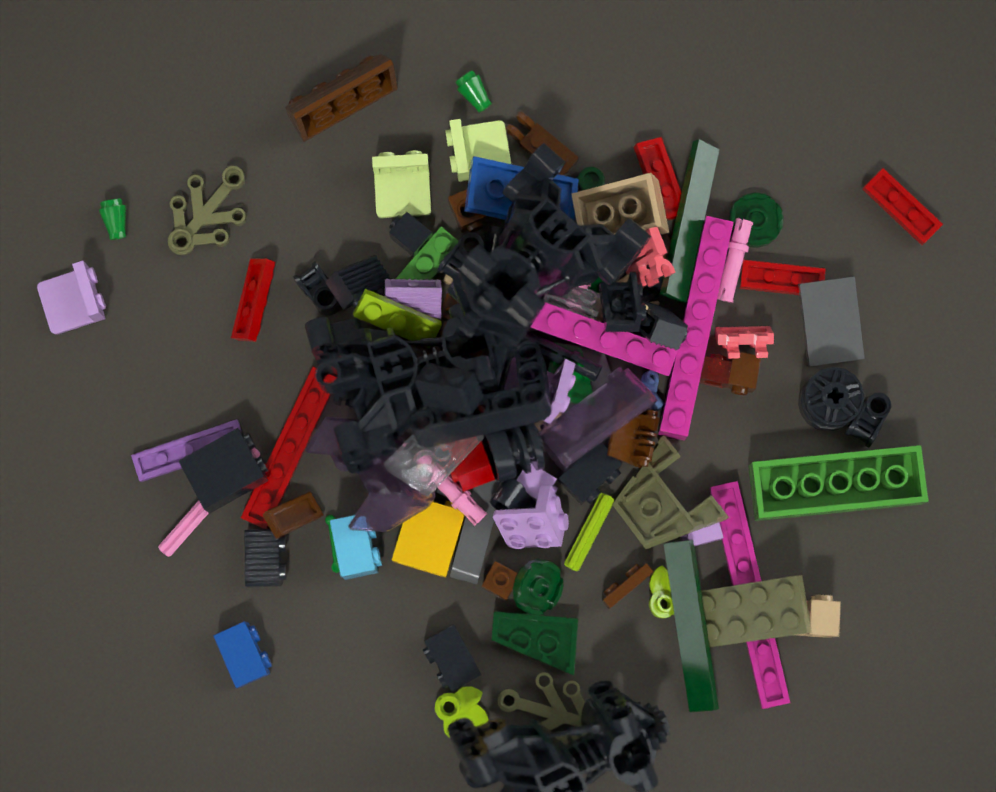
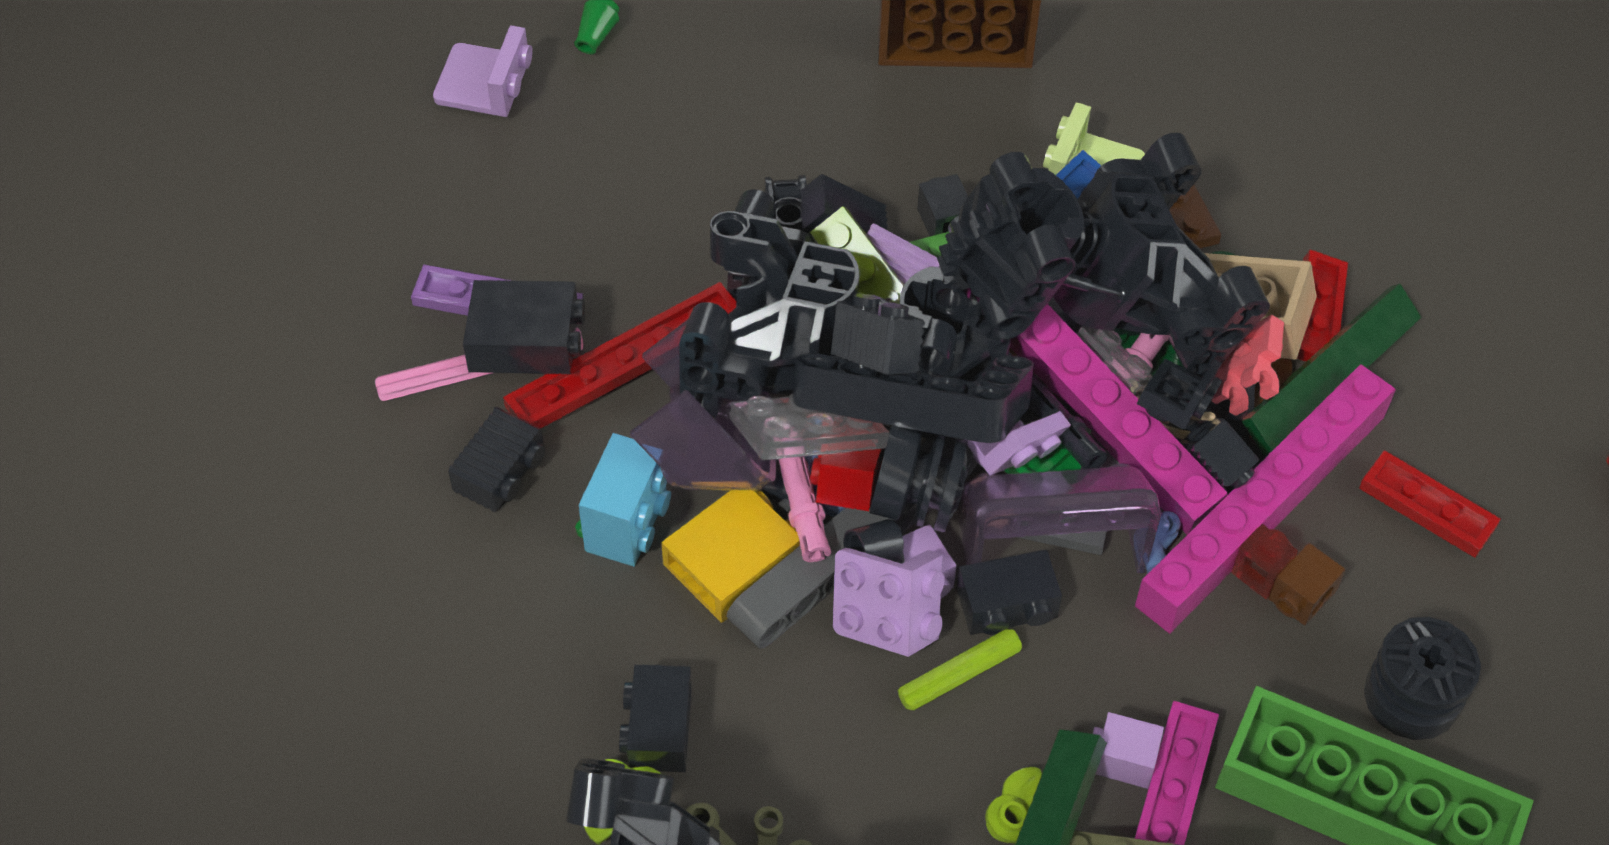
camera: 30 degrees right, 25 degrees down
(204, 214) = (664, 83): olive plant -> none
(242, 654) = (383, 556): blue brick -> none
(253, 300) = (698, 181): red plate -> none
(293, 515) = (570, 425): reddish brown tile -> none
(402, 184) = (970, 142): yellowish green bracket -> none
(473, 90) = (1127, 104): green cone -> none
(500, 581) = (793, 656): reddish brown brick -> none
(538, 586) = (841, 689): dark green tile -> none
(540, 637) = (800, 762): dark green wing -> none
(631, 441) = (1096, 574): reddish brown hinge -> none
(635, 577) = (972, 764): reddish brown plate -> none
(653, 509) = (1073, 684): olive wing -> none
(734, 260) = (1383, 433): bright pink pin -> none
(754, 336) = (1350, 549): coral plate -> none
(764, 214) = (1428, 422): dark green tile -> none
(831, 321) = (1479, 581): dark grey tile -> none
(867, 423) = (1462, 741): black piece -> none

